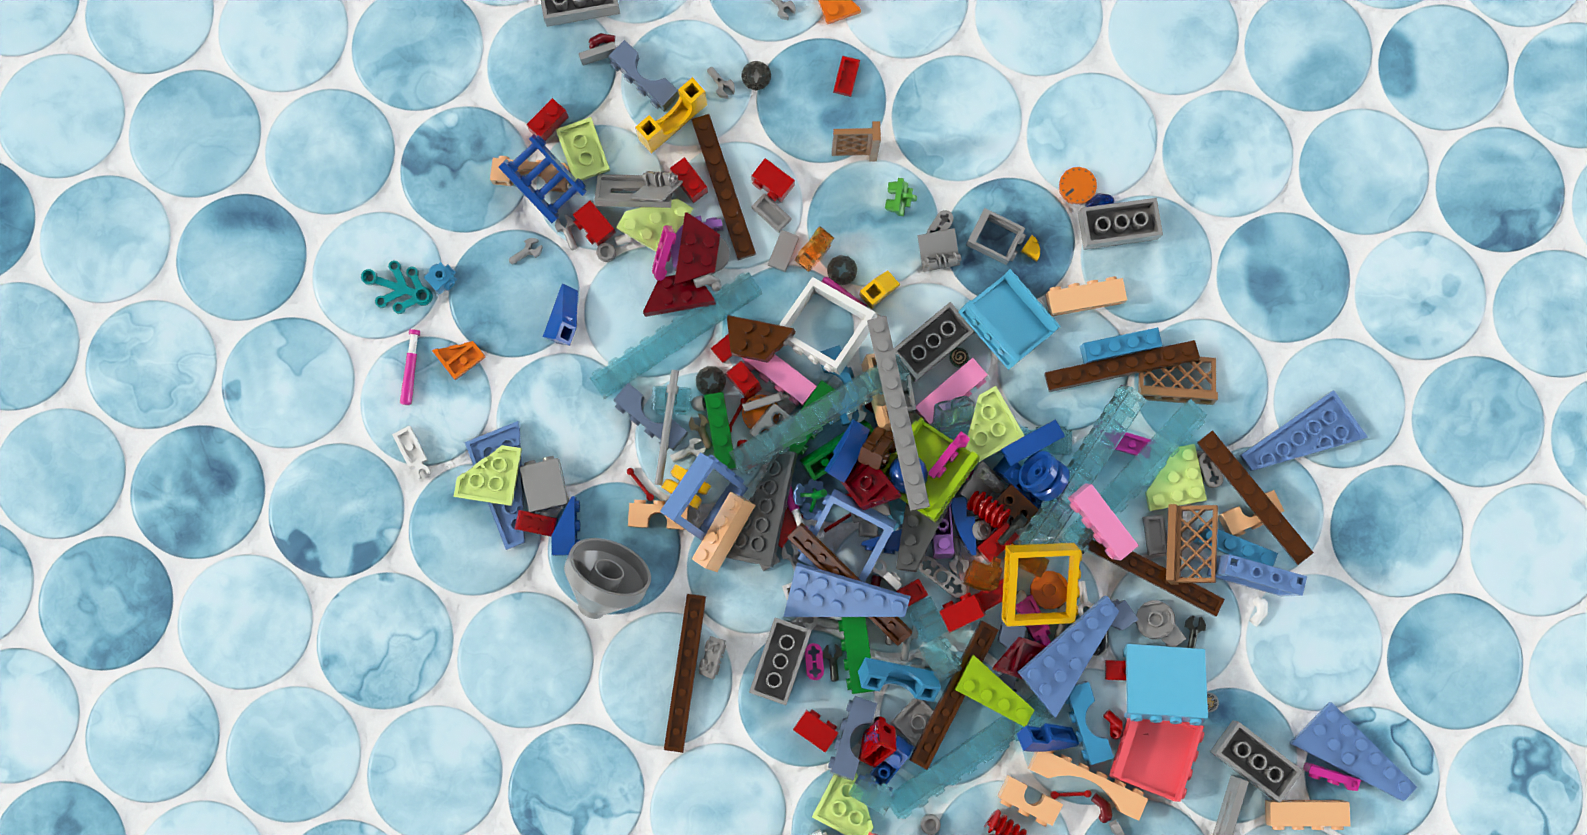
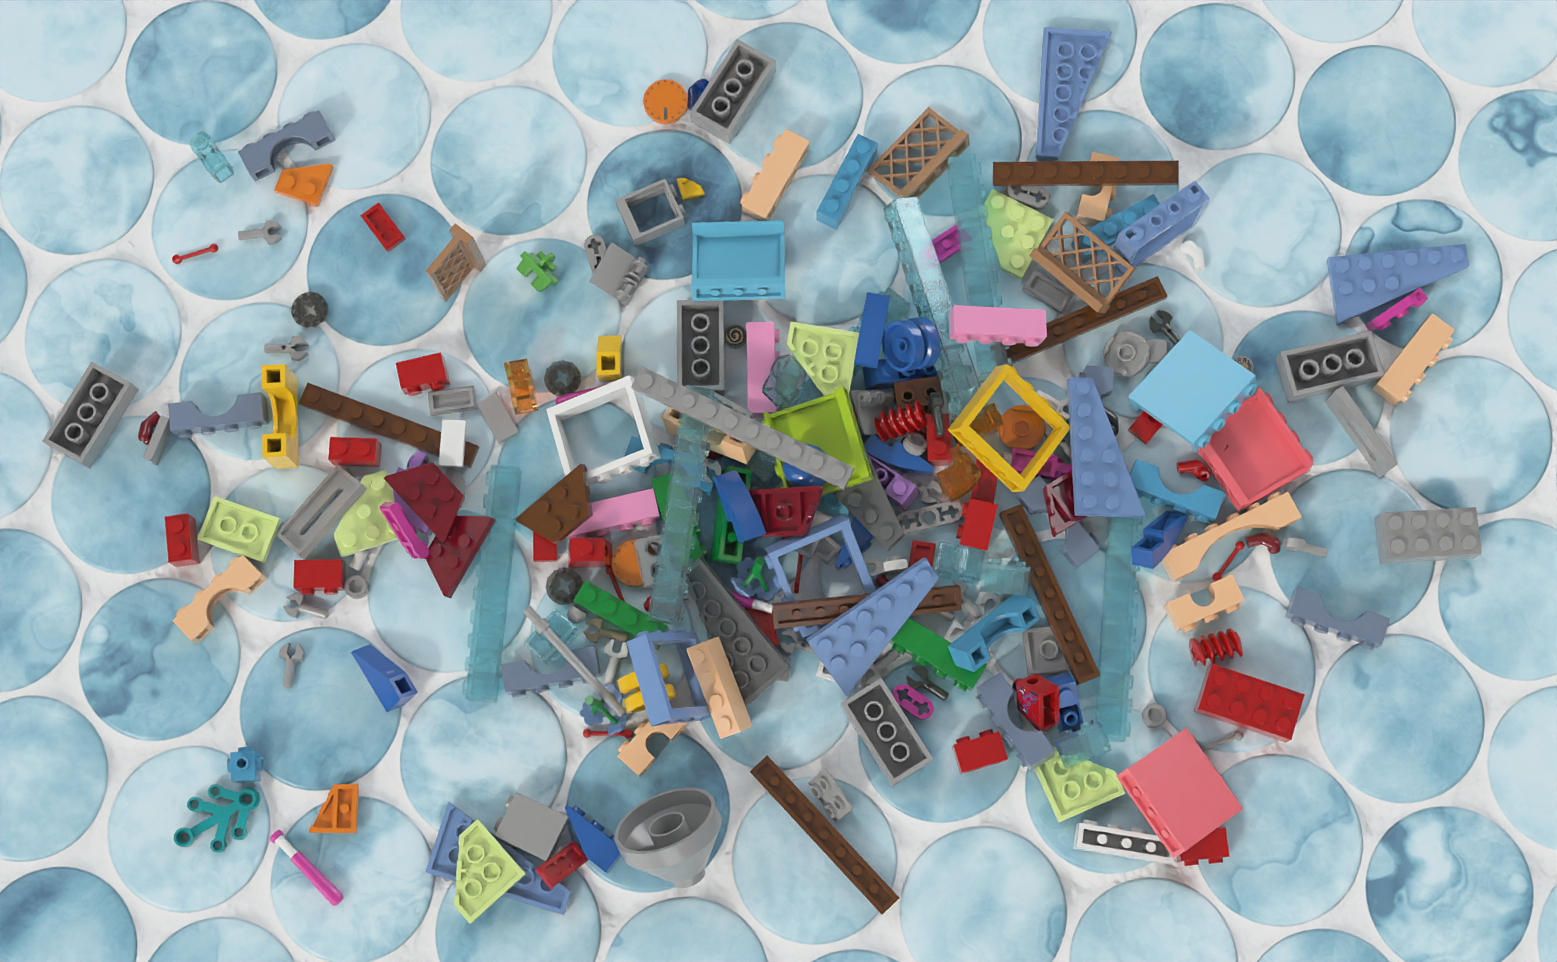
camera: 45 degrees left, 5 degrees down
(411, 450) = (389, 931): white plate -> none
(537, 196) = (247, 607): blue fence -> none
(647, 465) = (594, 711): none -> medium blue plant
(658, 186) = (336, 483): light grey hinge -> none
(709, 280) = (468, 507): light grey arm -> none
(743, 236) = (452, 443): none -> white tile
(762, 401) = (625, 550): light grey tile -> none
(877, 448) = (760, 475): reddish brown brick -> none
(879, 653) = (954, 631): none -> white tile
(949, 455) = (821, 413): dark pink hinge -> none
(988, 689) = (1071, 556): lime wing -> none
(1122, 366) = (866, 196): reddish brown plate -> none

